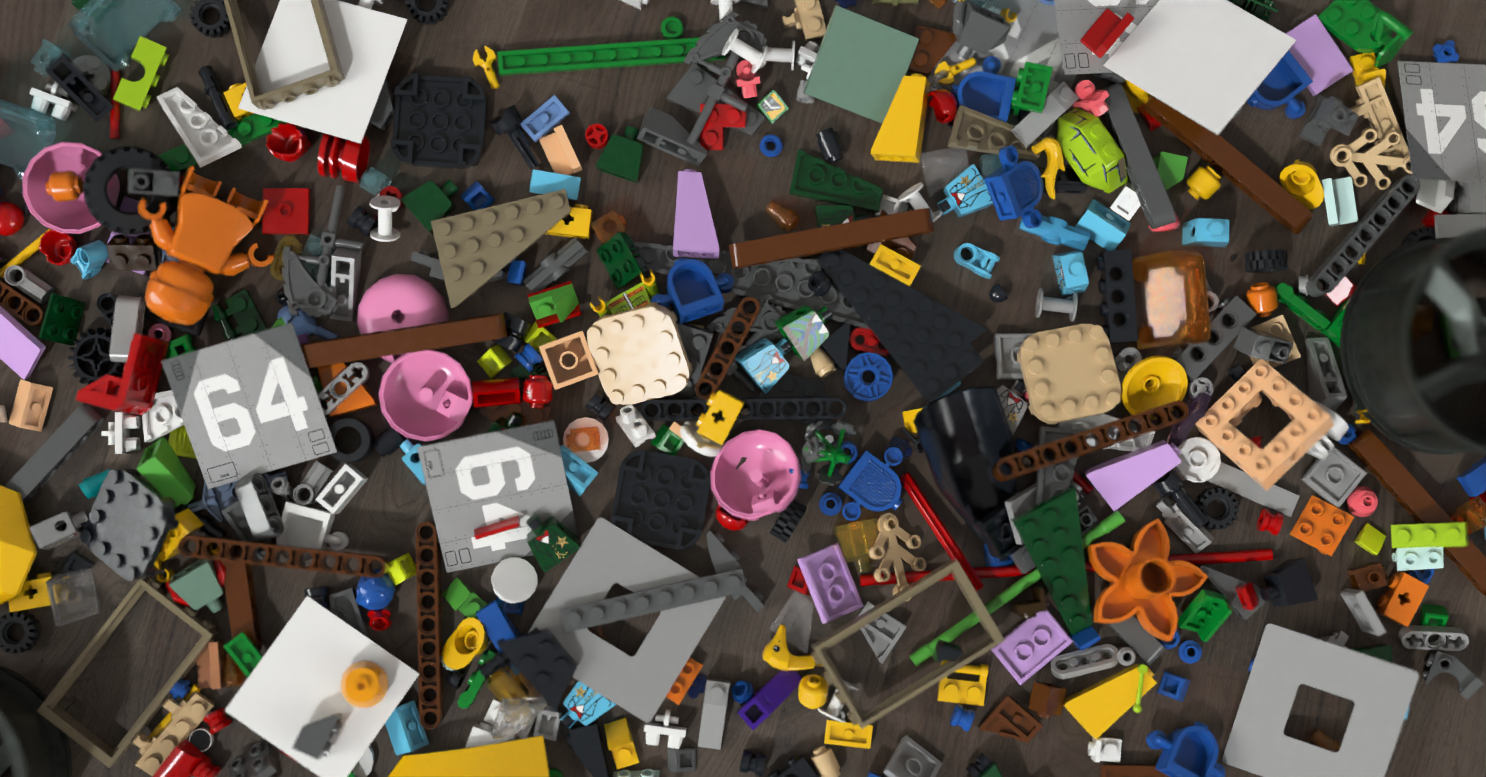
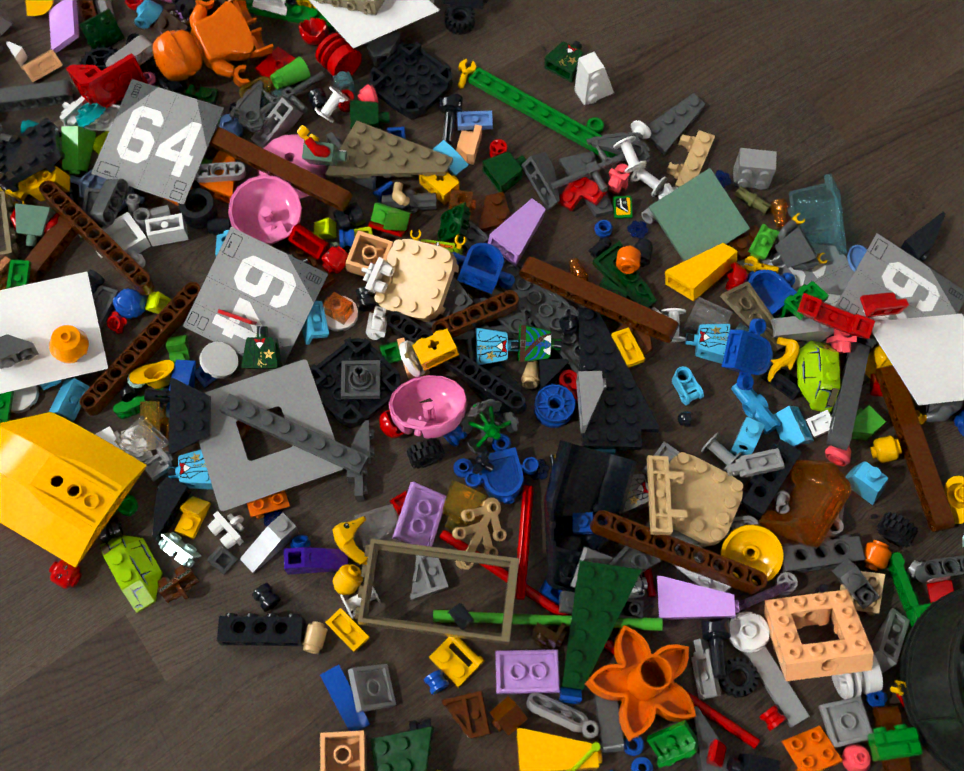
camera: 40 degrees right, 20 degrees down
(148, 429) = (89, 114): none -> teal piece
(310, 216) = (290, 74): none -> bright green plant
(411, 177) = (368, 94): none -> coral cone
(431, 295) = (320, 152): none -> torso
(544, 274) = (398, 196): none -> tan arm
(600, 370) = (374, 275): none -> white hips
(649, 210) = (494, 212): none -> reddish brown wing
(668, 496) = (361, 379): none -> dark grey plate
(783, 169) = (603, 244): none -> black pin
(805, 113) = (640, 226): none -> clear blue plant
(826, 168) = (628, 259): none -> orange head
(850, 492) = (482, 463): none -> black plant
(901, 350) = (589, 391): none -> light grey slope
(943, 45) = (763, 242): none -> bright green hips
(981, 473) = (581, 523): none -> blue plate
(1029, 389) = (660, 509): none -> tan hinge
(1075, 86) = (835, 317): none -> red slope
(1101, 296) = (756, 463): none -> light grey hinge
(1145, 311) = (782, 501): none -> light grey pin
(1389, 470) = (894, 743): none -> green brick

